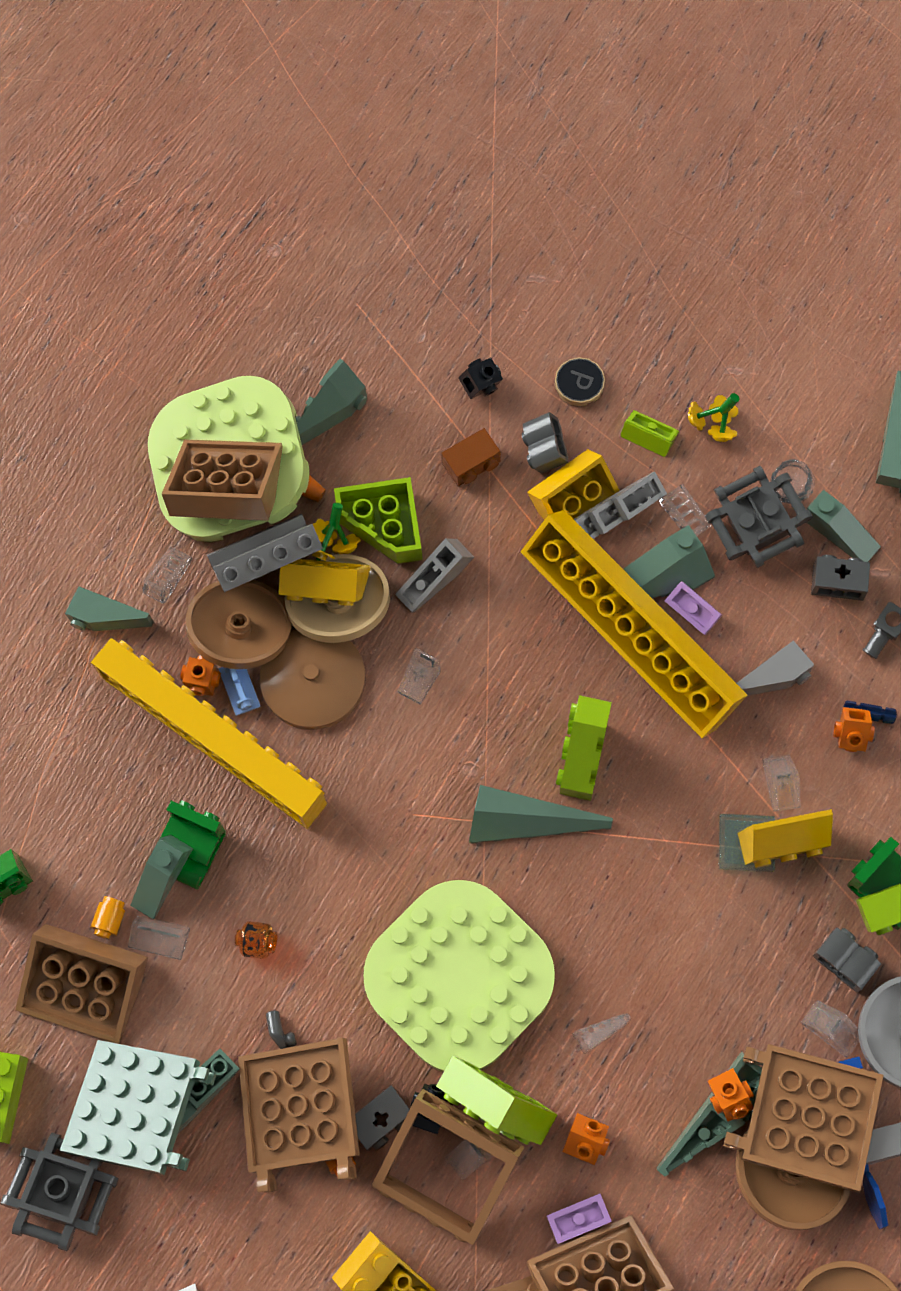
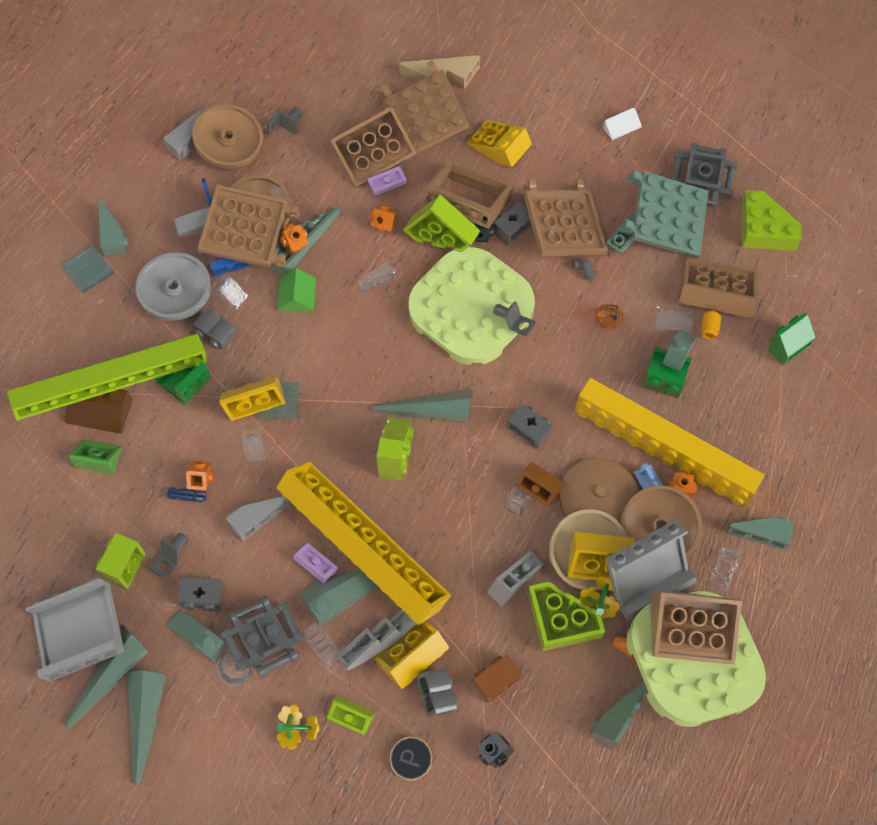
camera: 170 degrees right, 5 degrees down
(386, 763) = (532, 434): none -> dark grey brick
(390, 689) = (539, 484): none -> dark orange brick
(399, 930) = (514, 318): none -> dark grey bracket
(725, 1018) = (296, 291): none -> bright green slope

